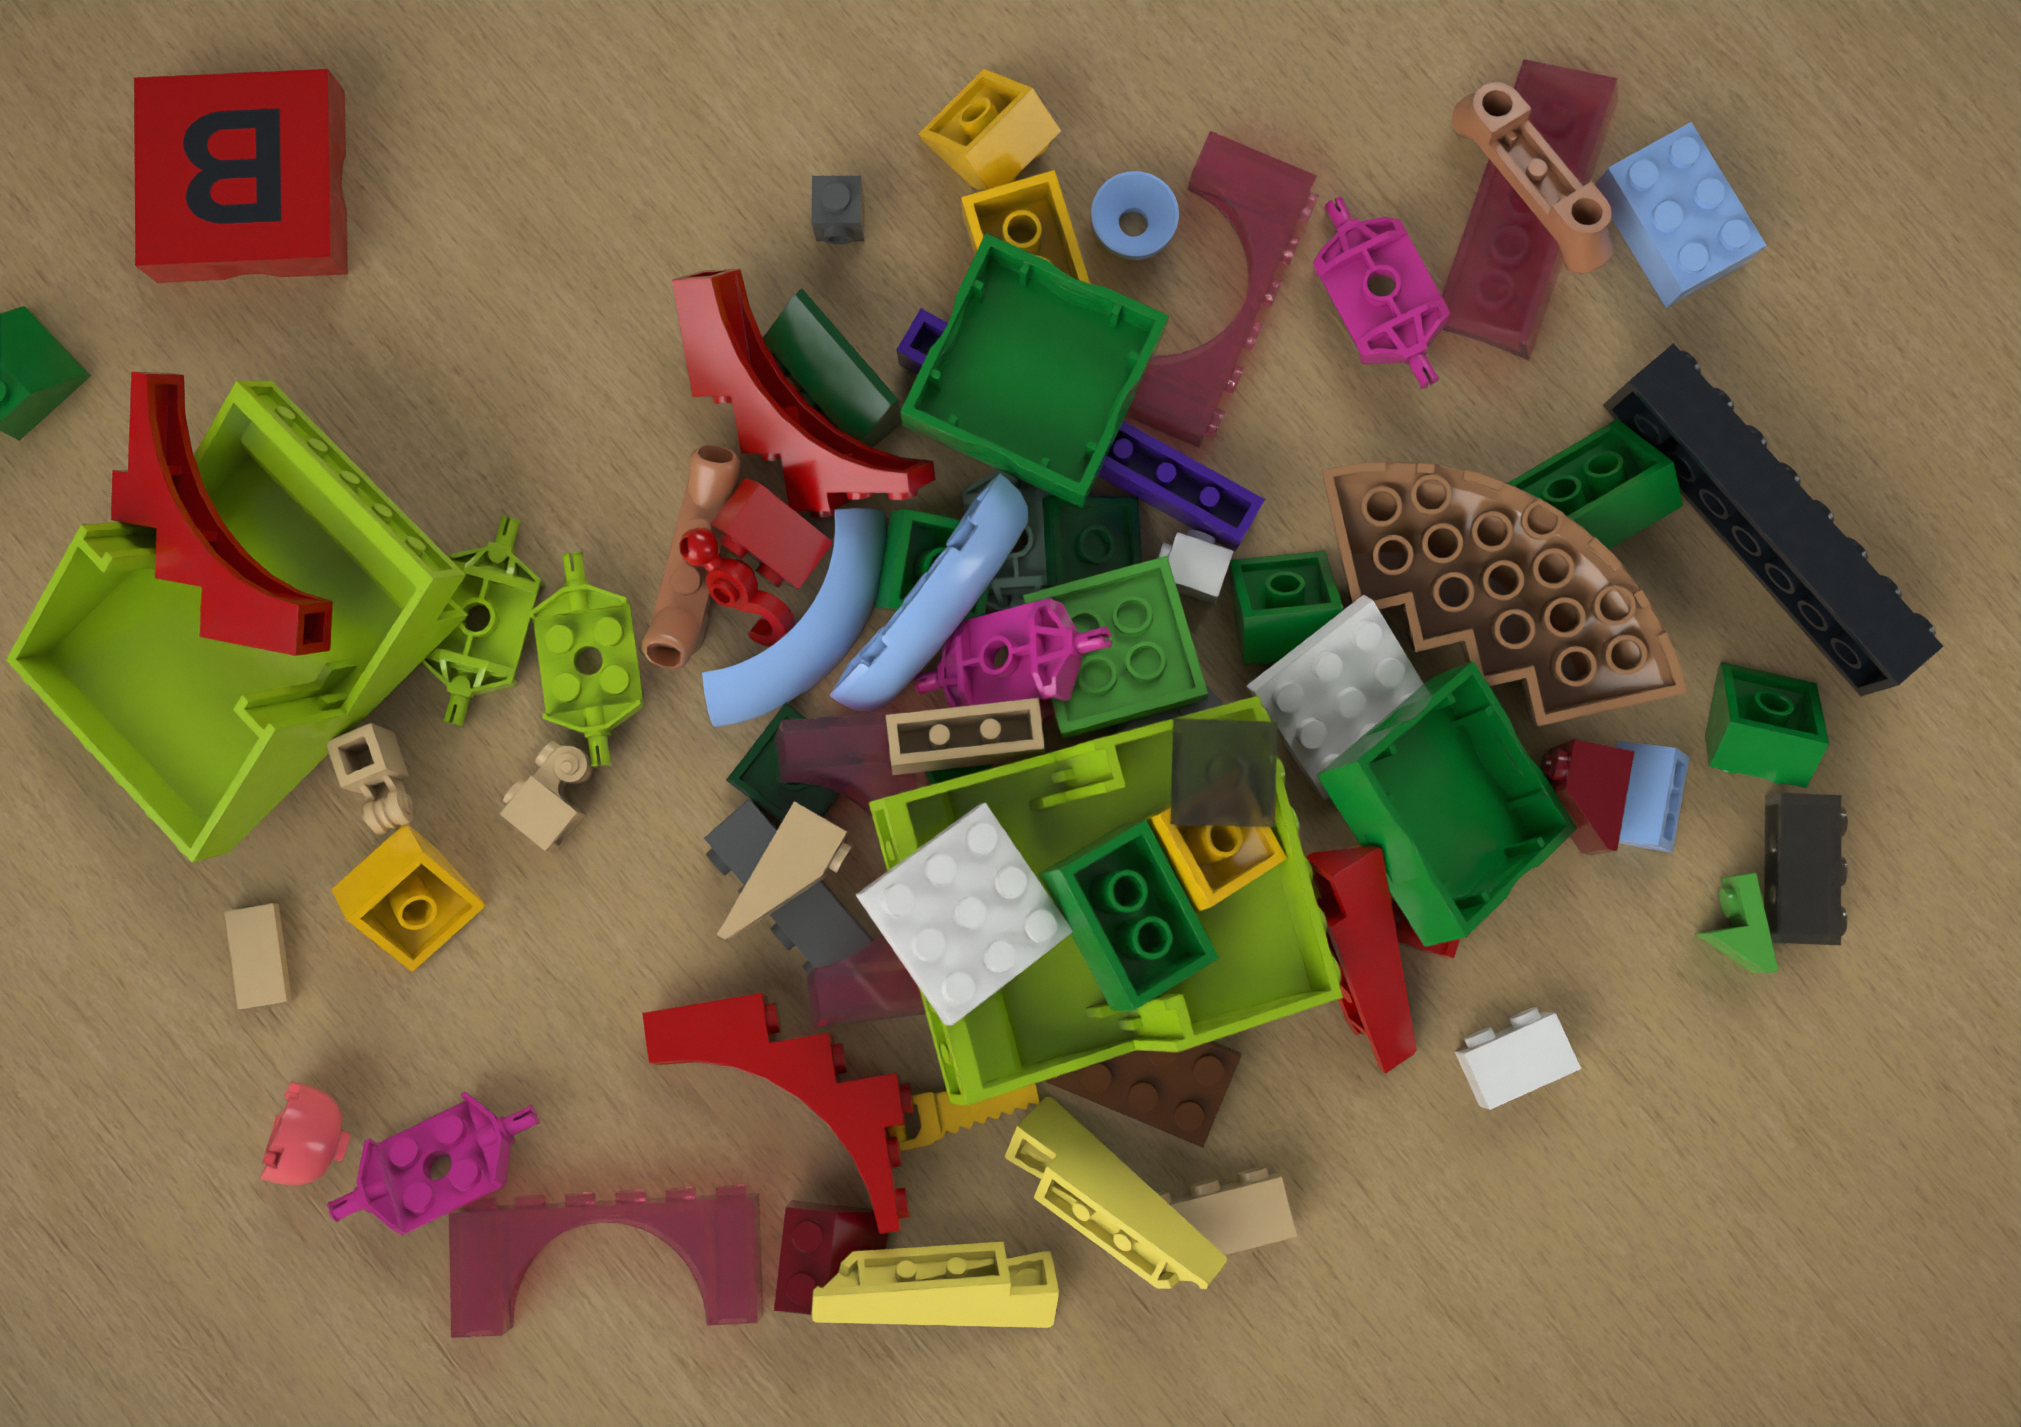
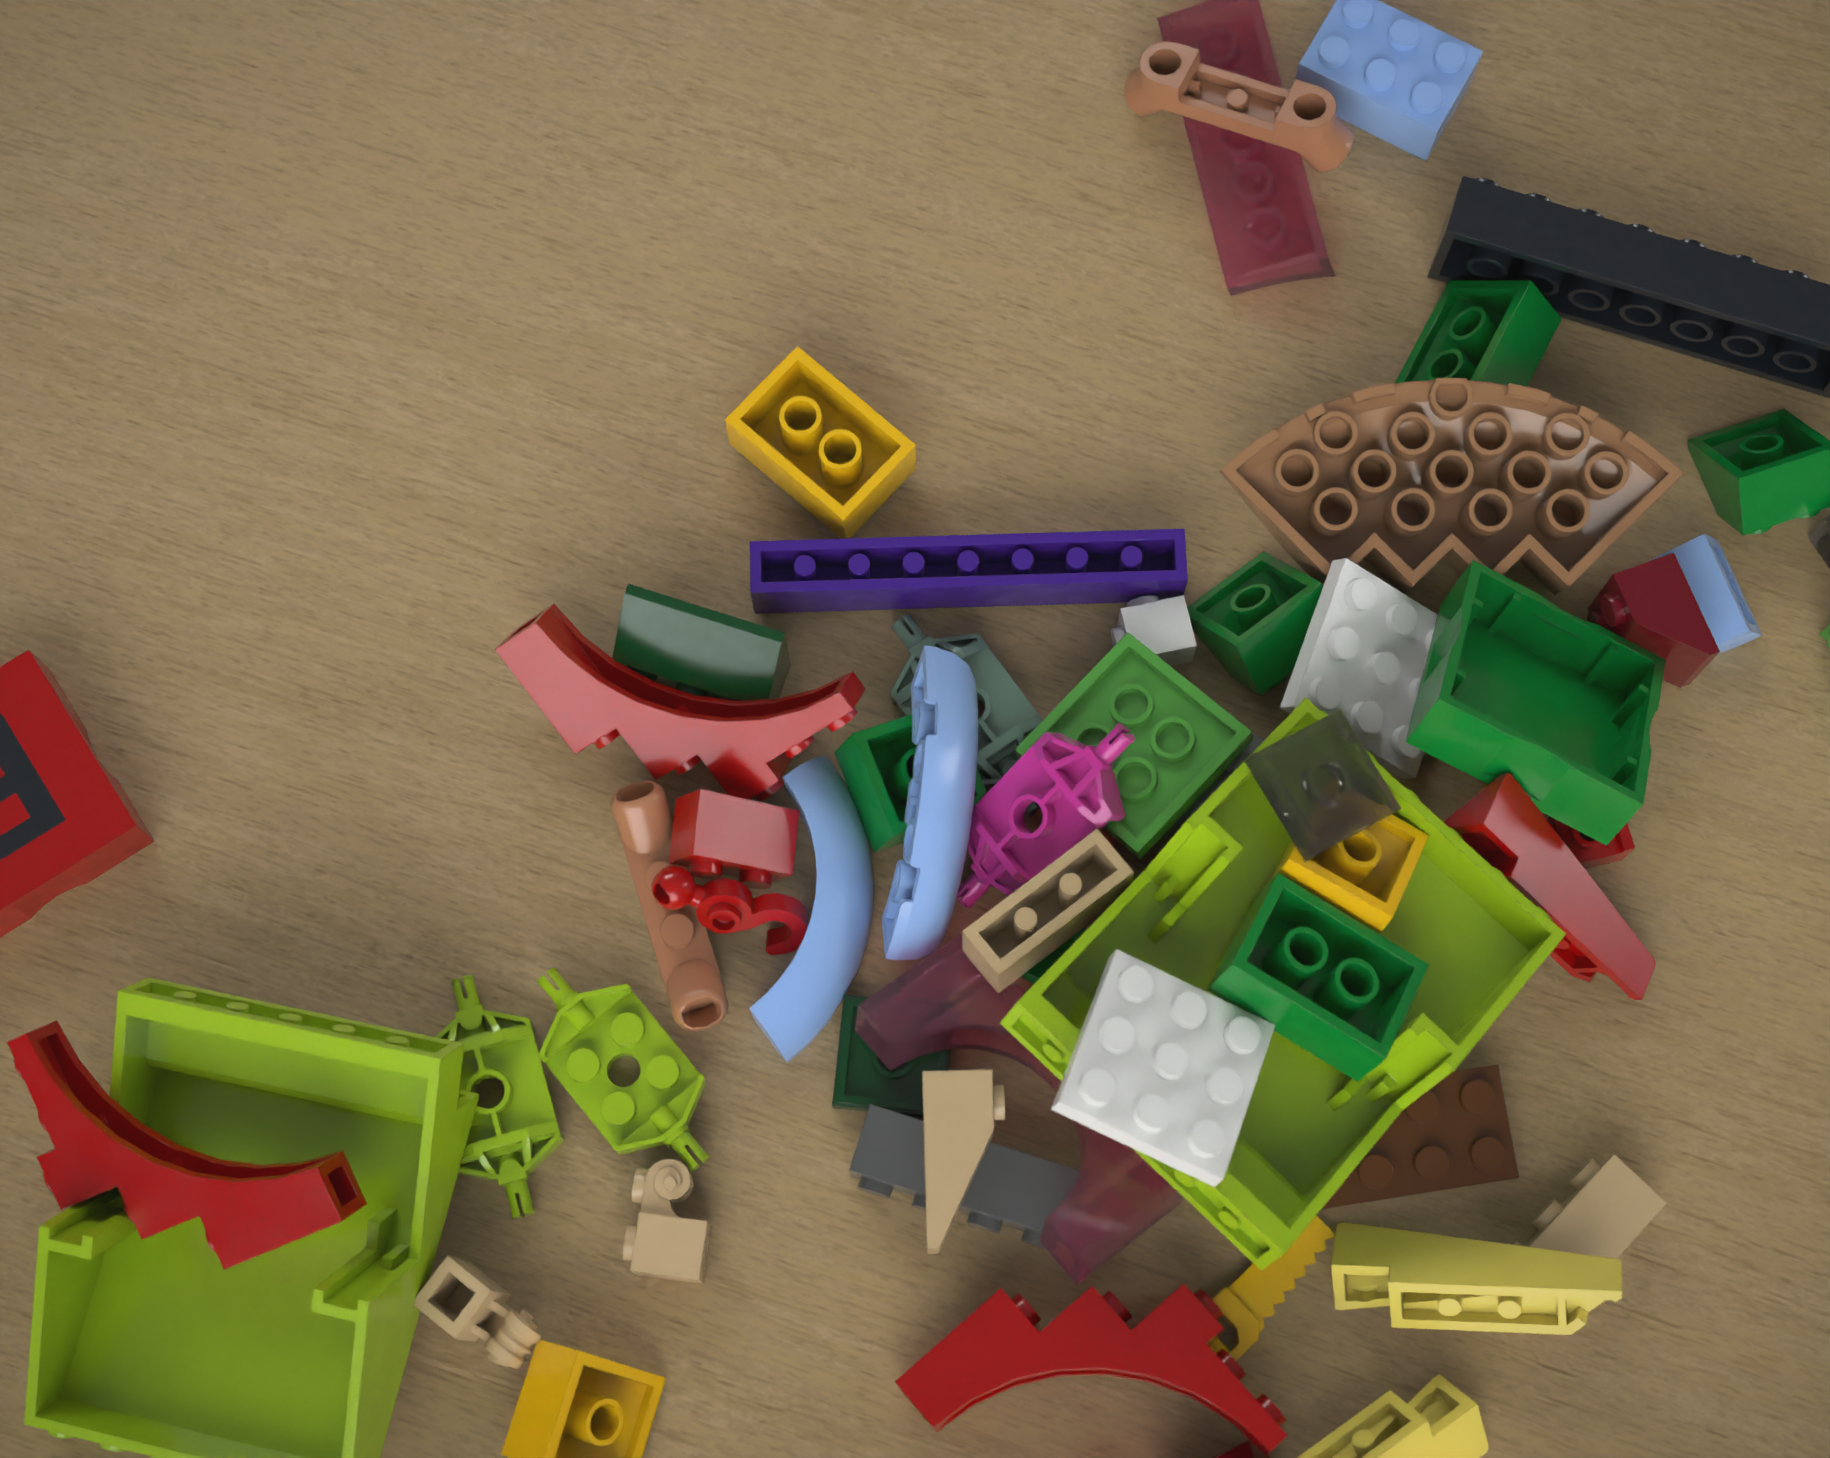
camera: 30 degrees left, 10 degrees down
(838, 209) = (608, 501): dark grey brick -> none
(991, 130) = (709, 349): yellow slope -> none
(1034, 370) = (898, 533): green tile -> none
(1090, 538) = (1037, 663): dark green tile -> none
(1134, 193) = (888, 328): light blue piece -> none
(1263, 206) = (1008, 275): clear pink arch -> none
(1389, 326) = (1189, 316): dark pink plate -> none
(1516, 1058) = (1752, 909): white brick -> none

